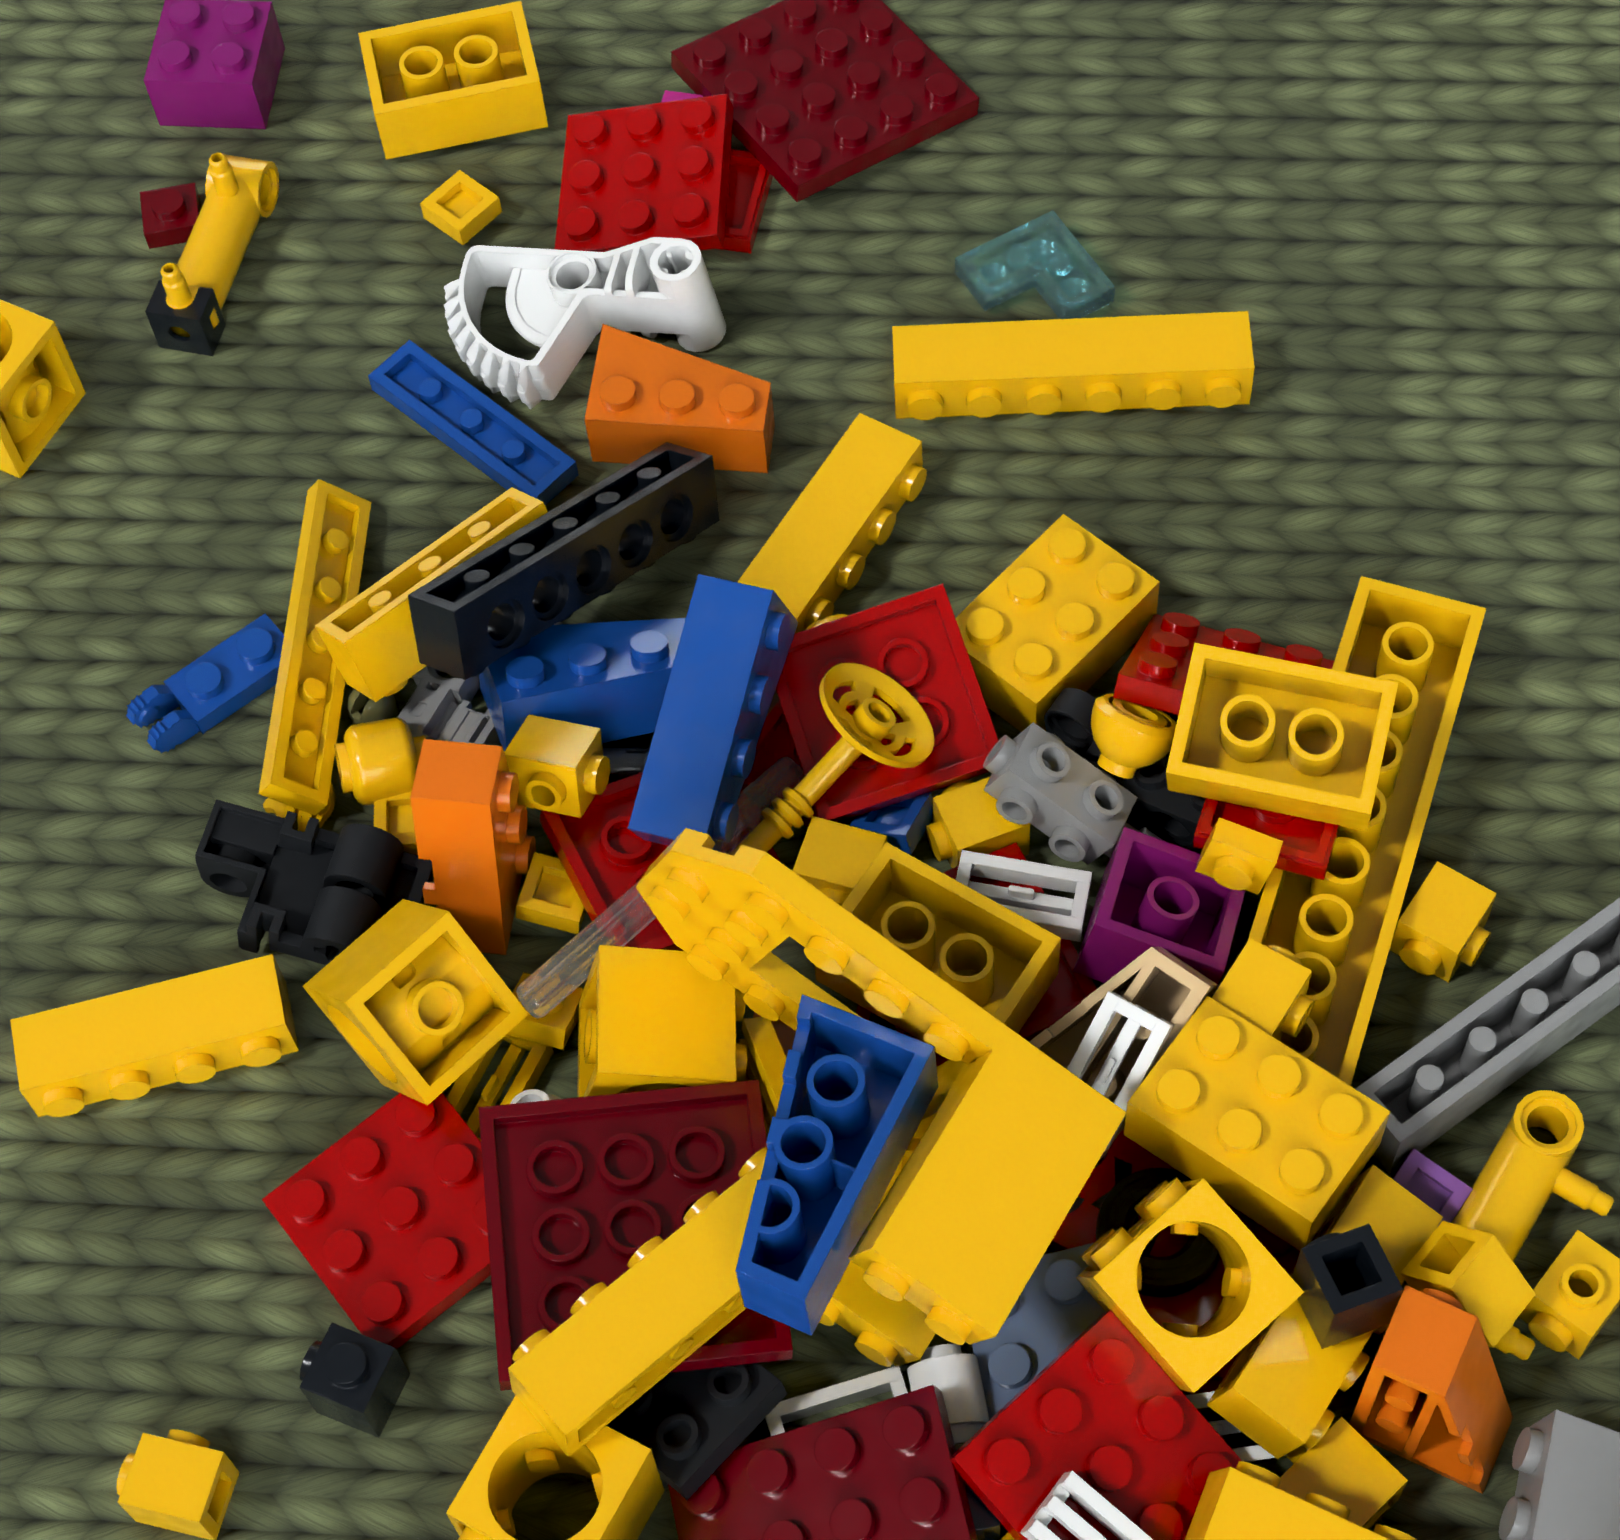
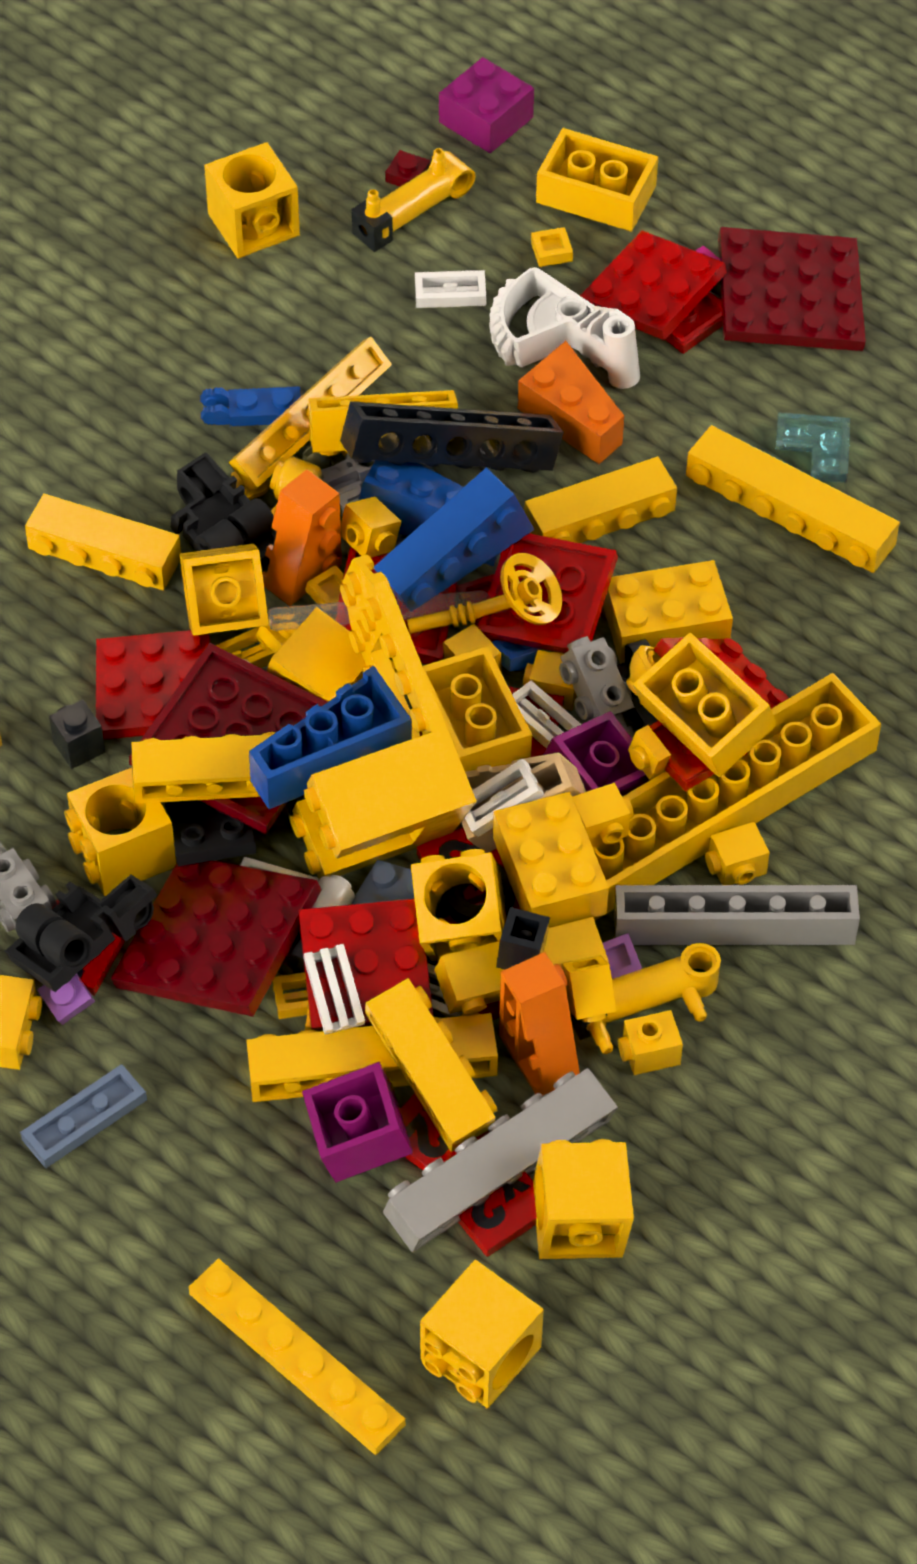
camera: 30 degrees right, 5 degrees down
(369, 351) = (456, 289): none -> white tile
(472, 424) = (469, 355): blue plate -> none

